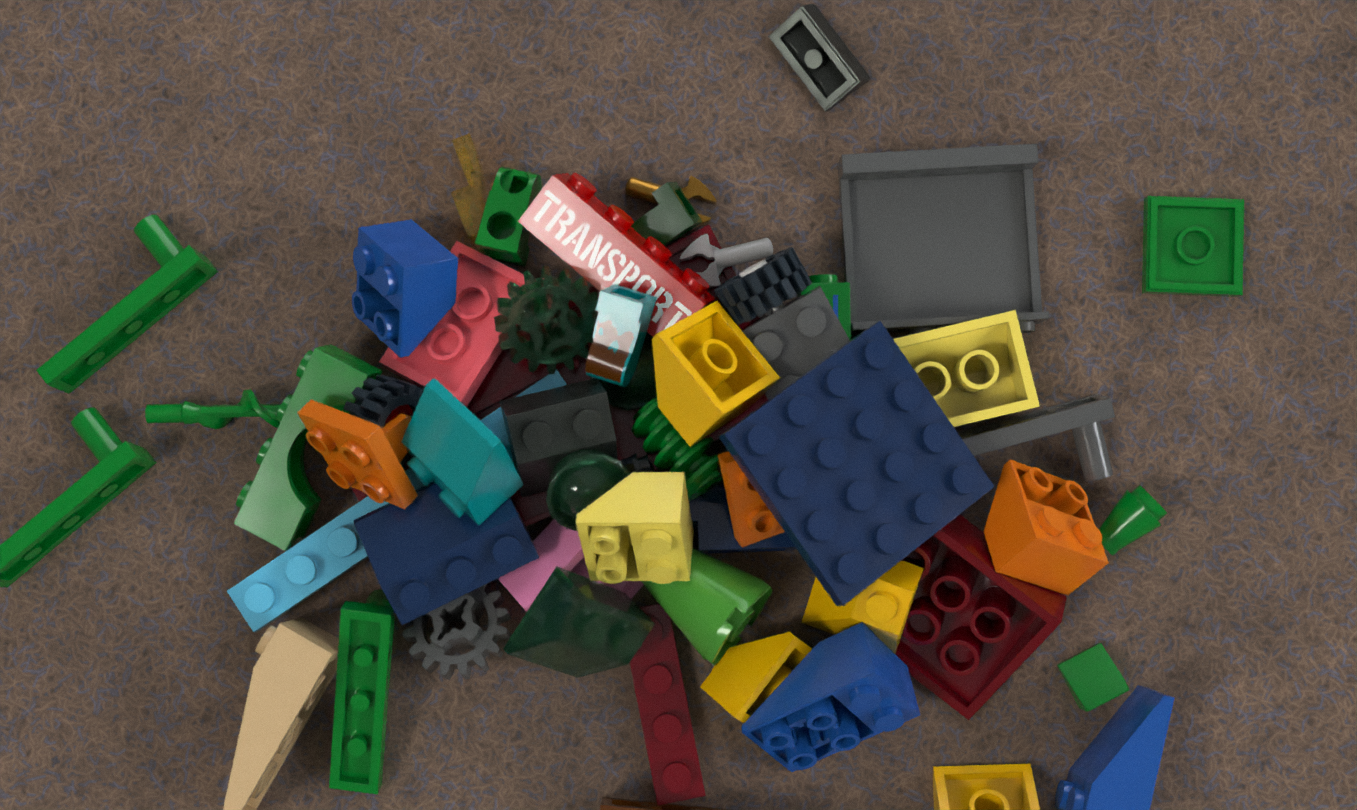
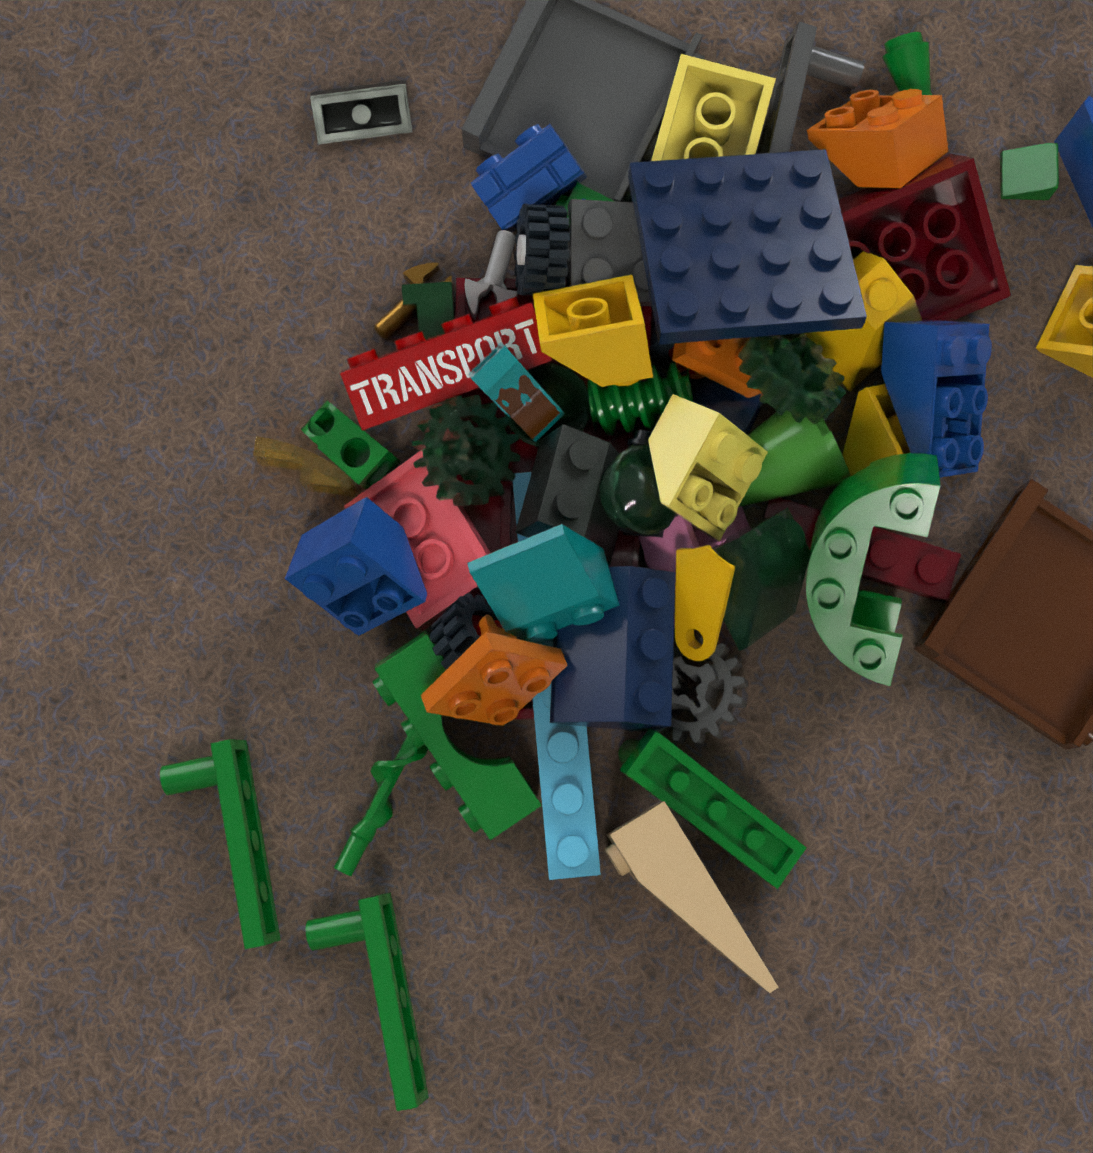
camera: 65 degrees left, 5 degrees down
(526, 592) = (700, 599): none -> yellow piece
(586, 730) = (853, 622): none -> green cylinder
(760, 568) = (792, 375): none -> clear green gear
(832, 237) = (530, 174): none -> blue brick

